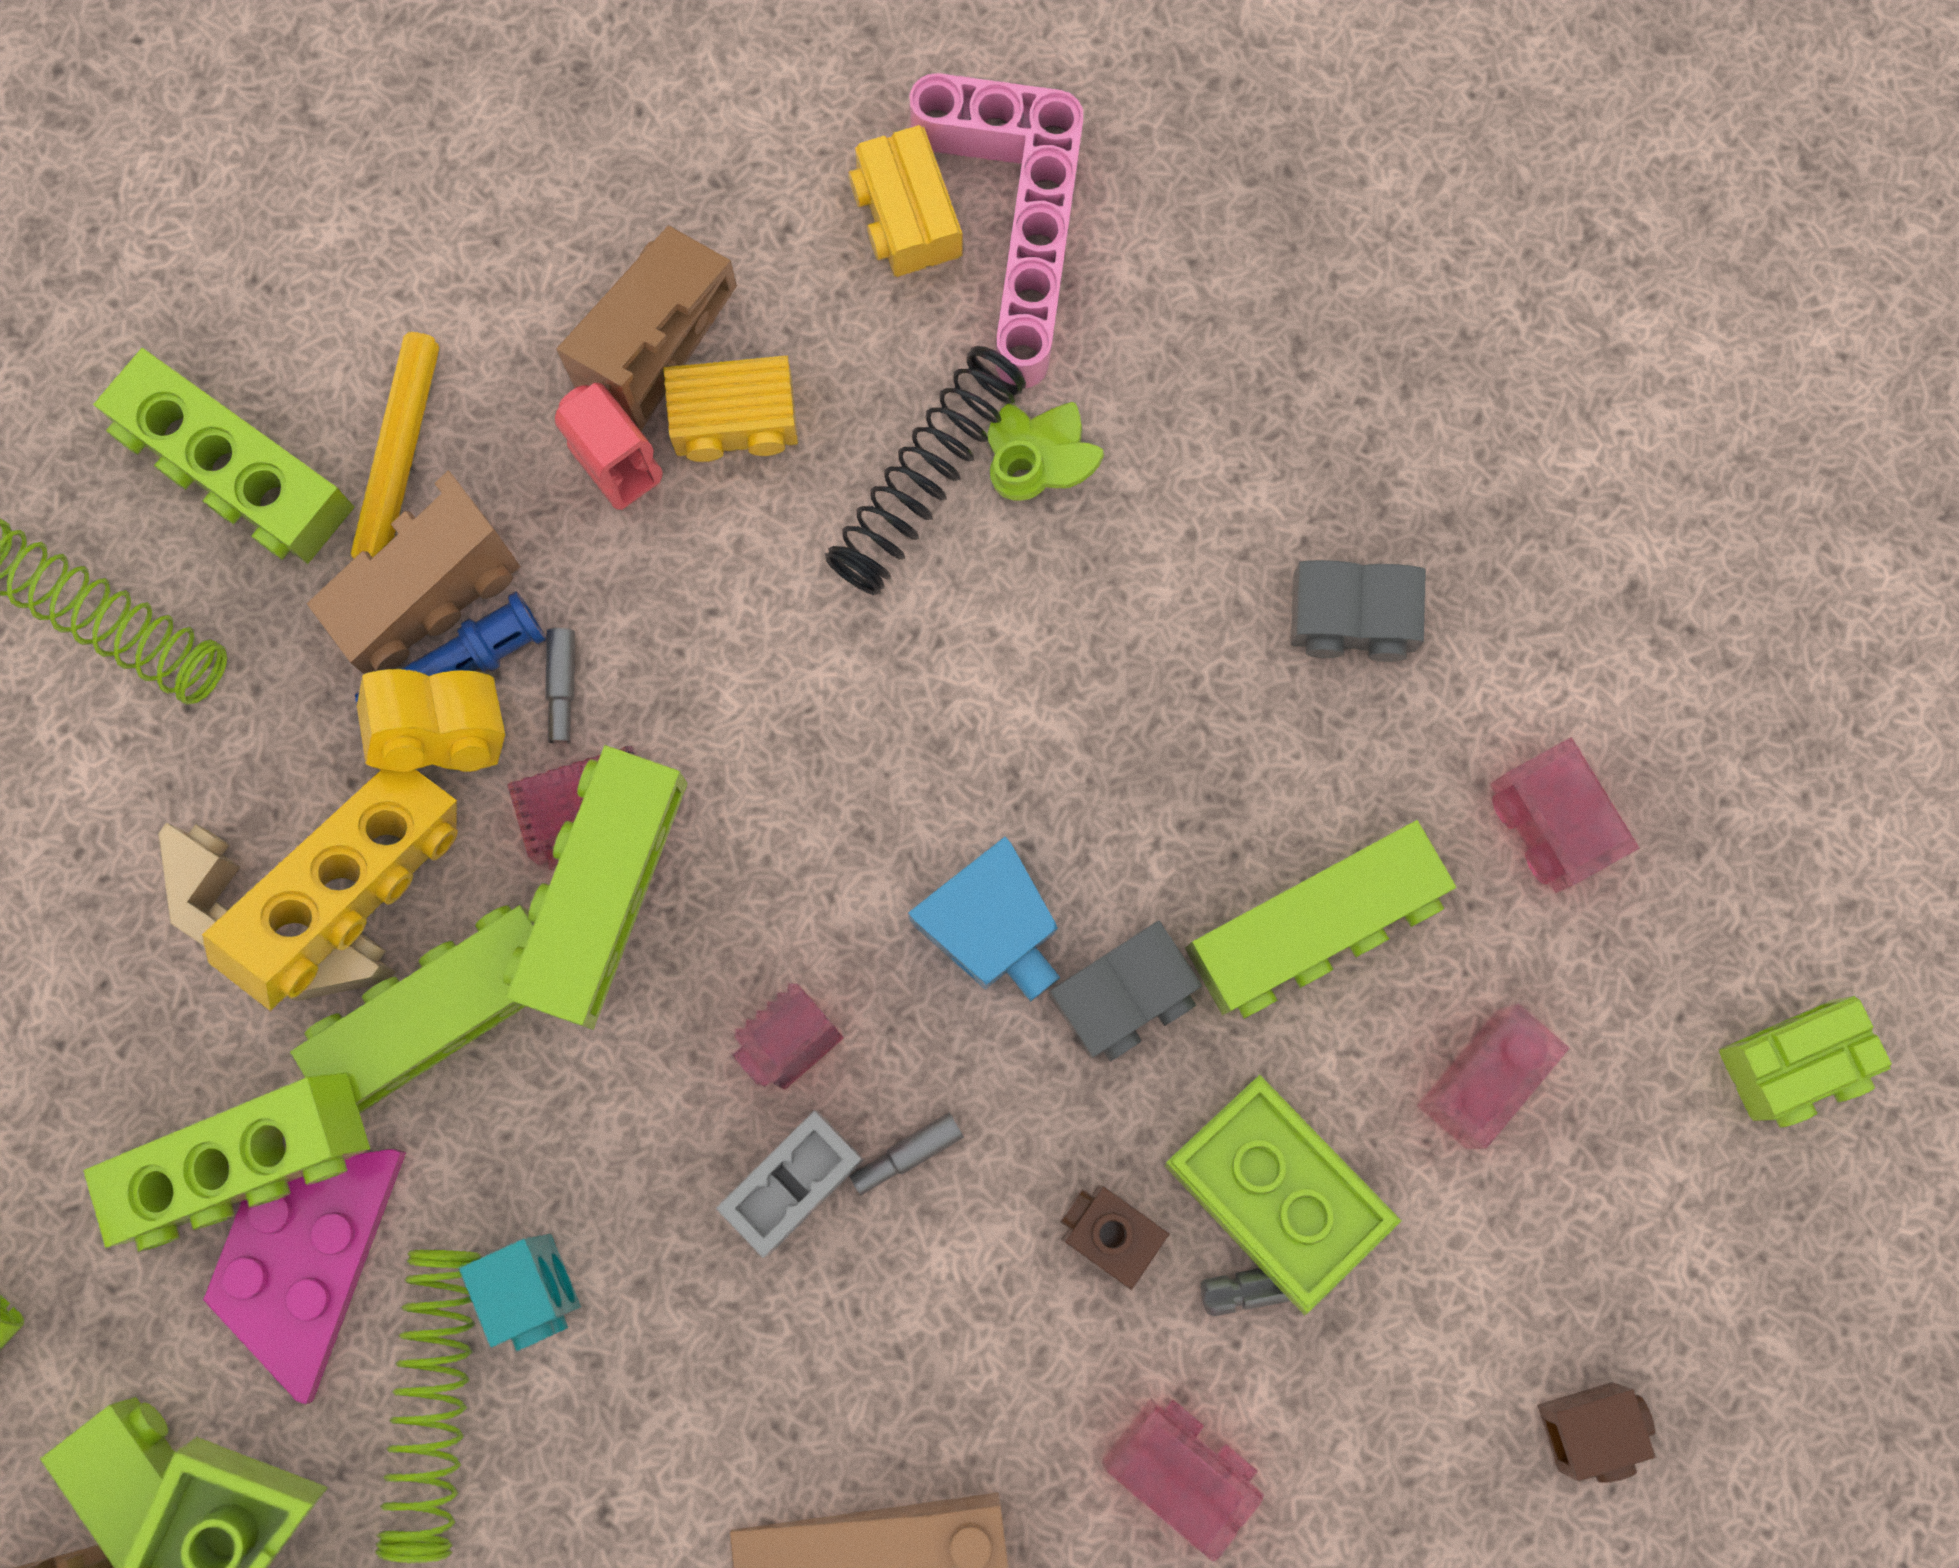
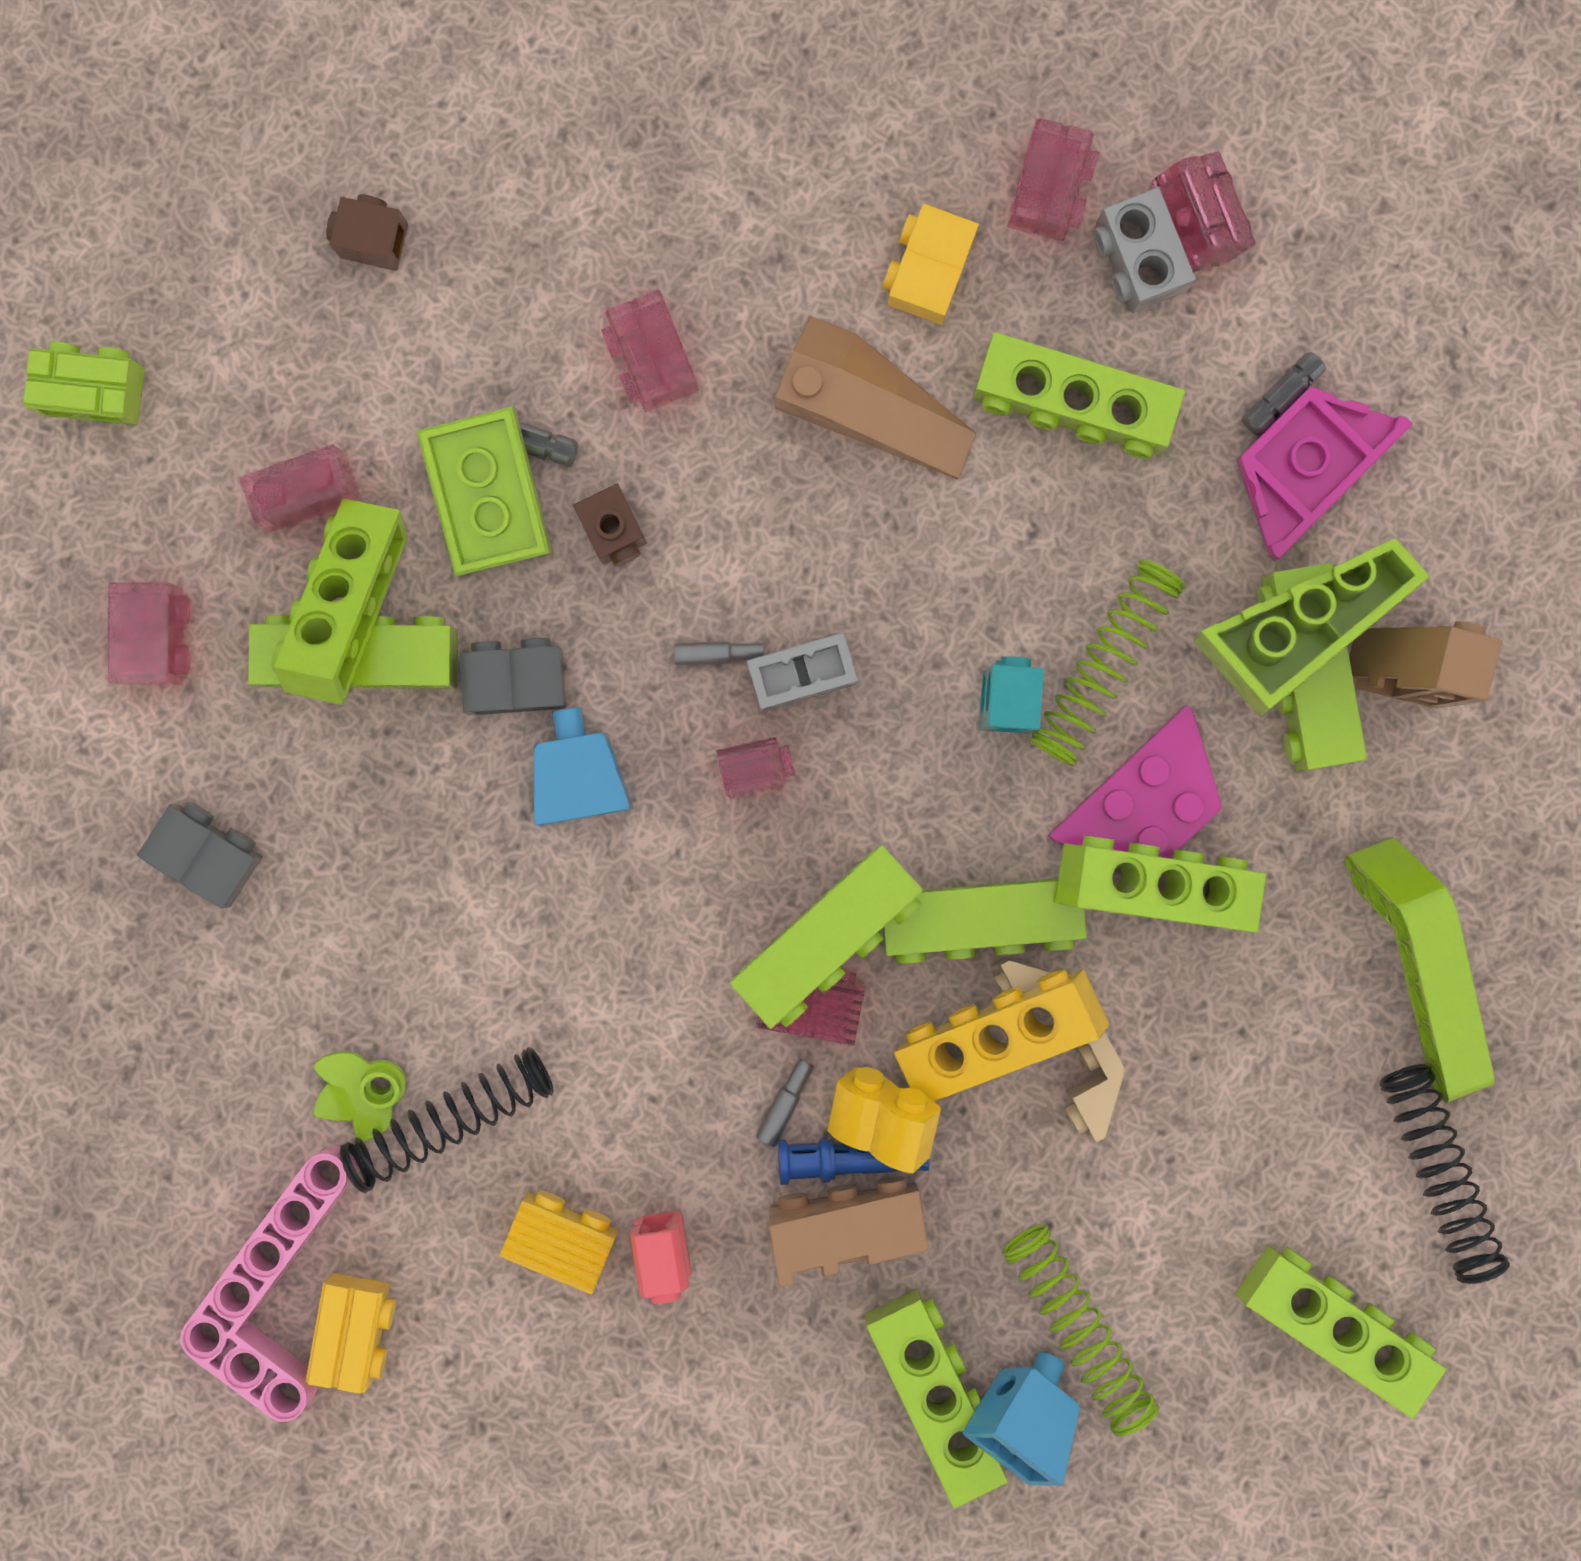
camera: 150 degrees left, 10 degrees up
(101, 480) = (1027, 1421): none -> dark azure torso
(396, 443) = (813, 1341): yellow axle -> none
(649, 322) = (583, 1336): medium nougat wedge -> none
(1335, 881) = (329, 667): none -> lime brick

